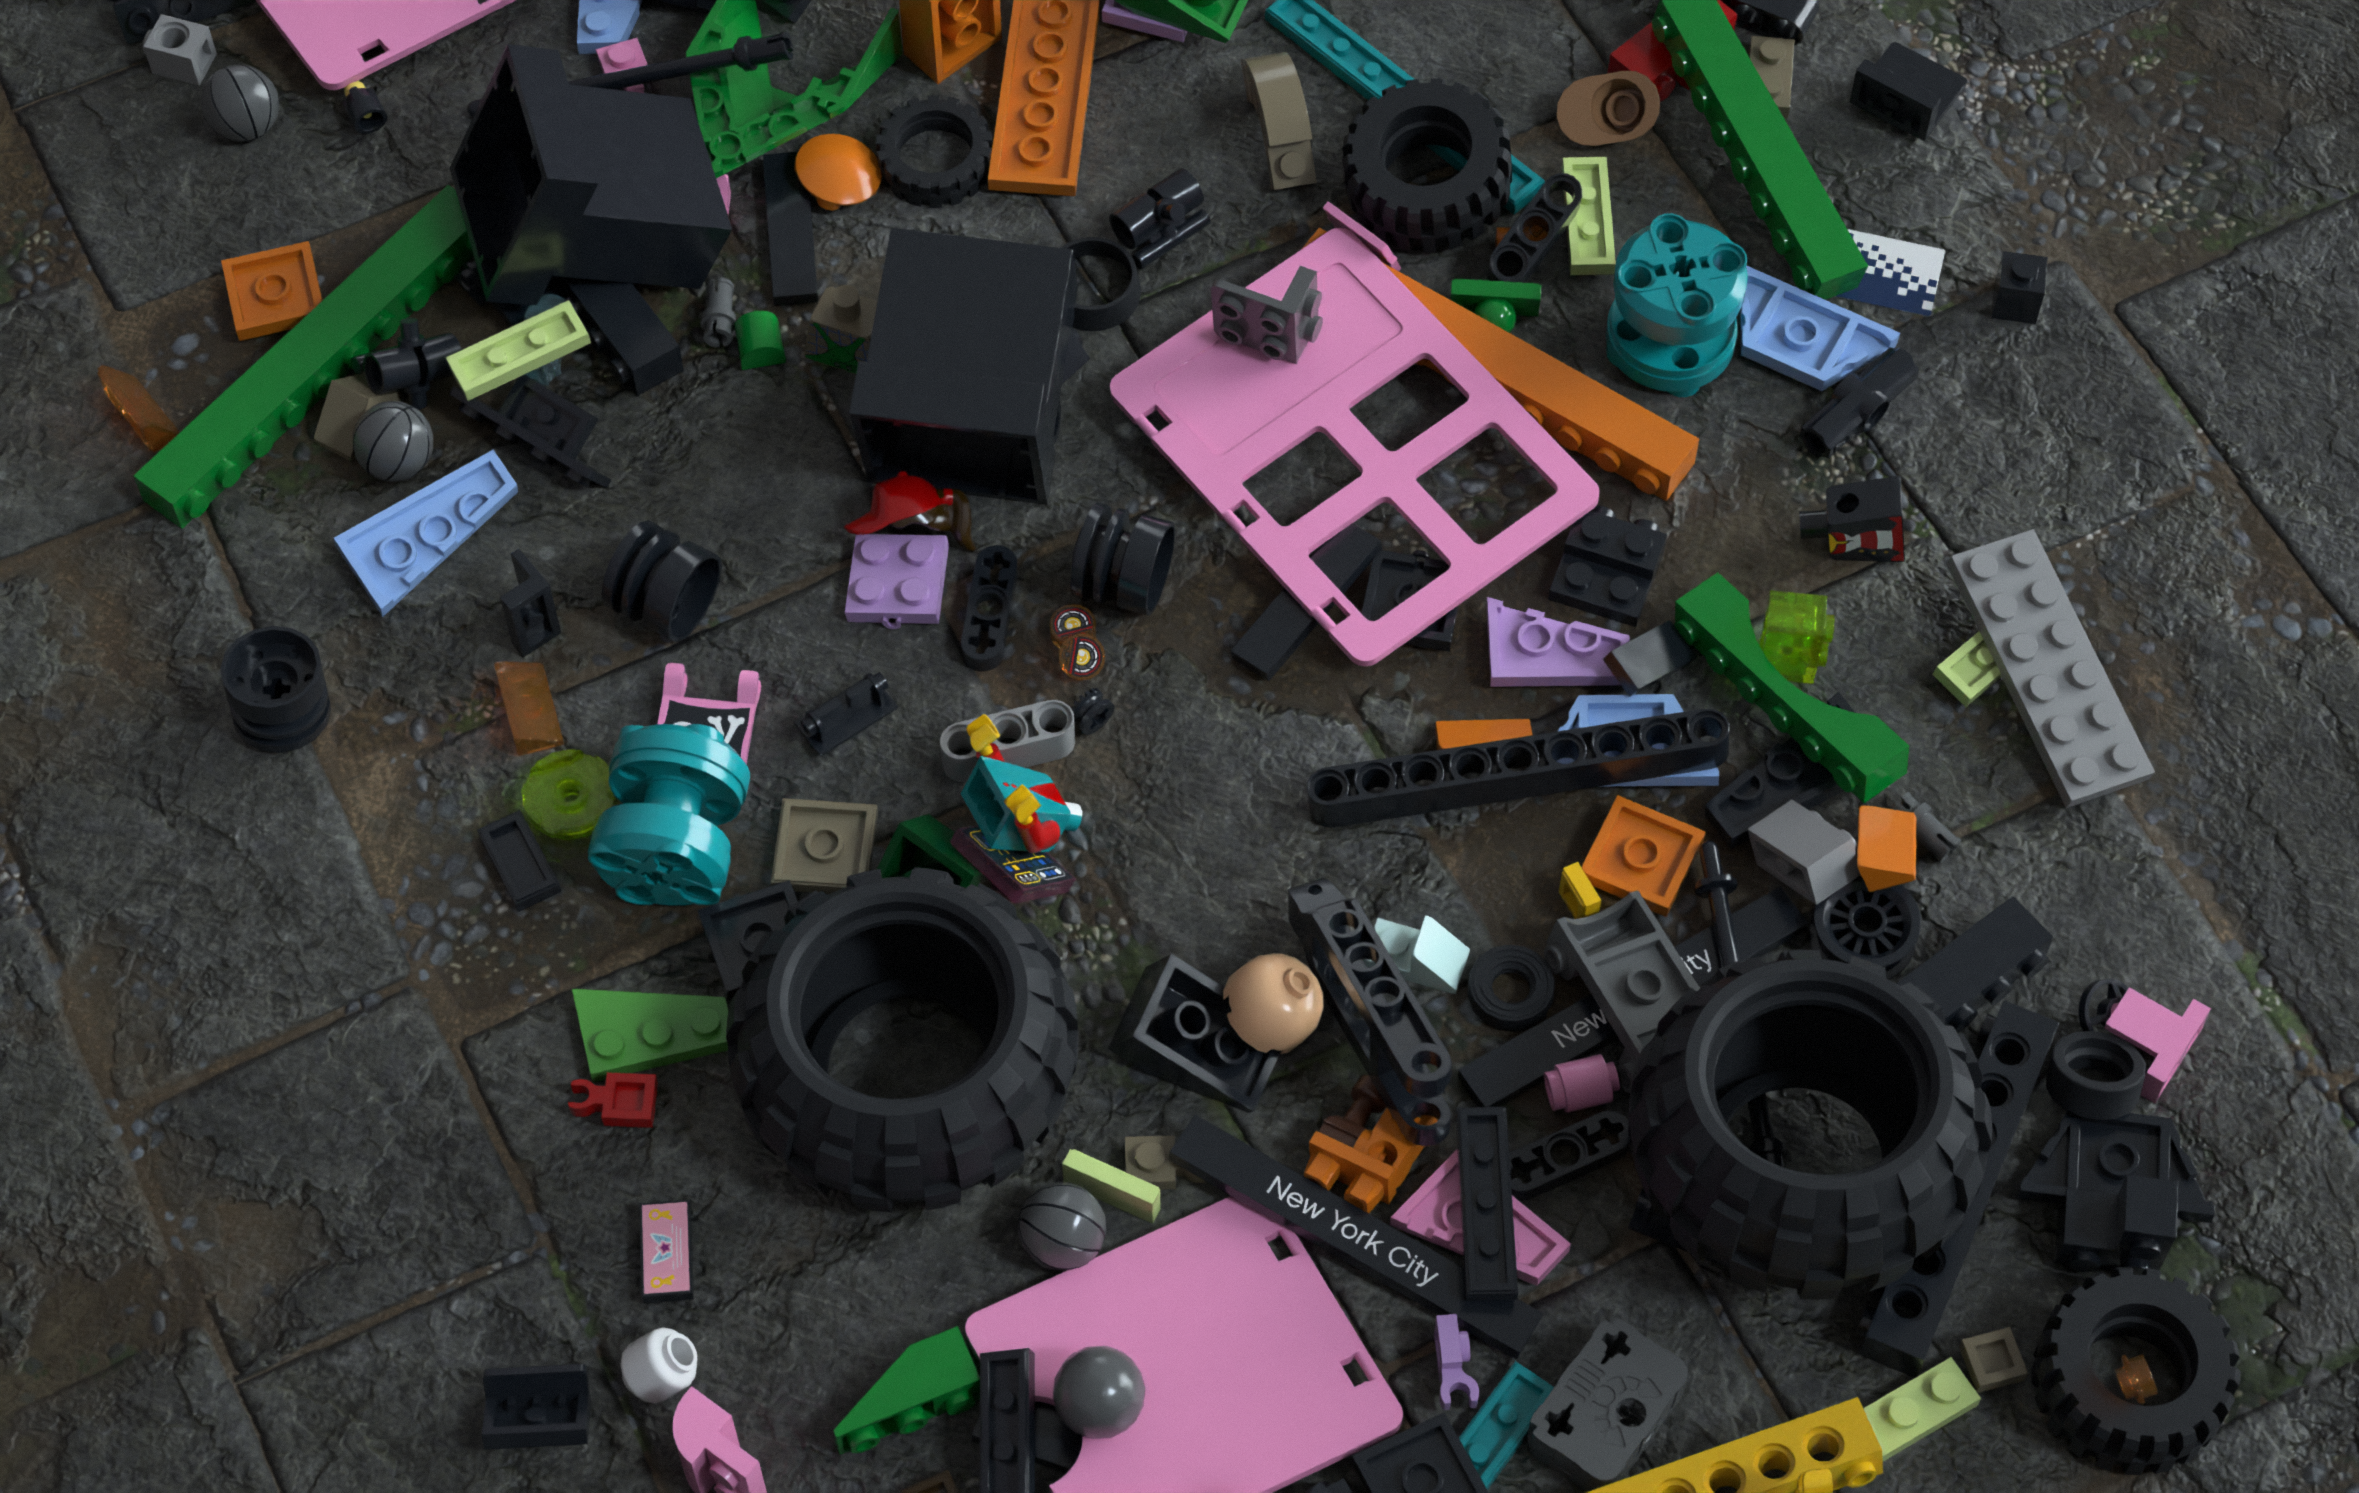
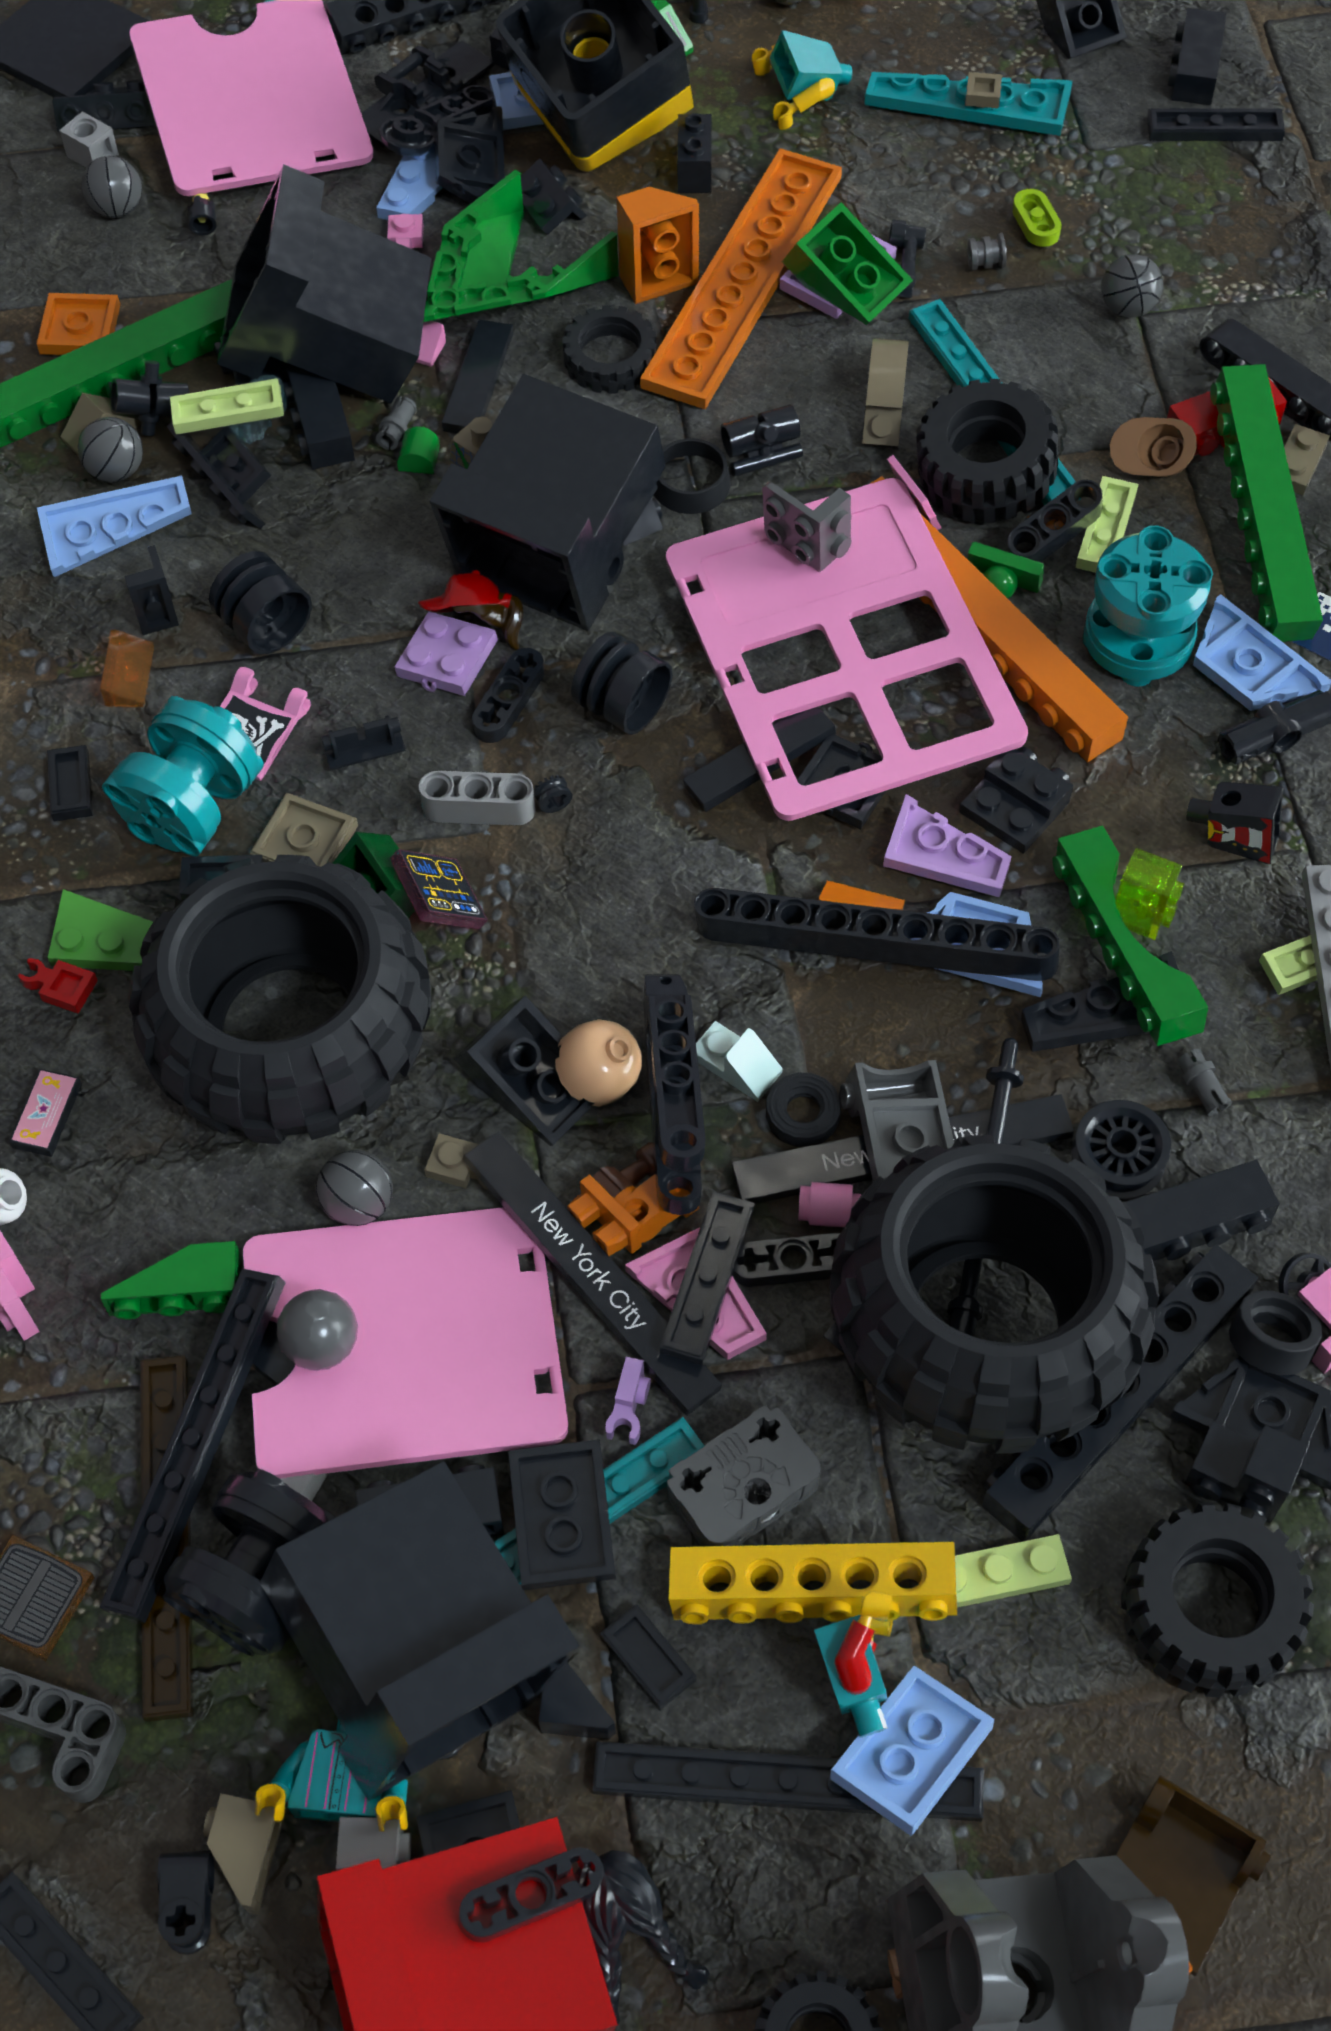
camera: 20 degrees right, 0 degrees up
(564, 775) = (119, 730): clear neon green plate -> none
(745, 54) = (483, 233): black bar -> none
(837, 170) = (529, 344): orange dish -> none
(1013, 803) = (457, 845): torso -> none
(1071, 620) = (567, 728): tile -> none
(1081, 656) = (563, 750): tile -> none
(1112, 1185) = (411, 1168): yellowish green tile -> none
(1578, 892) = (887, 1047): yellow tile -> none
(1642, 853) = (954, 1033): orange plate -> none
(1649, 658) = (1020, 878): black tile -> none
(1804, 851) = (1091, 1070): light grey brick -> none
(1886, 847) = (1159, 1086): orange slope -> none
(1993, 1360) = (1095, 1549): dark tan plate -> none
(2136, 1378) = (1205, 1607): clear orange plate -> none

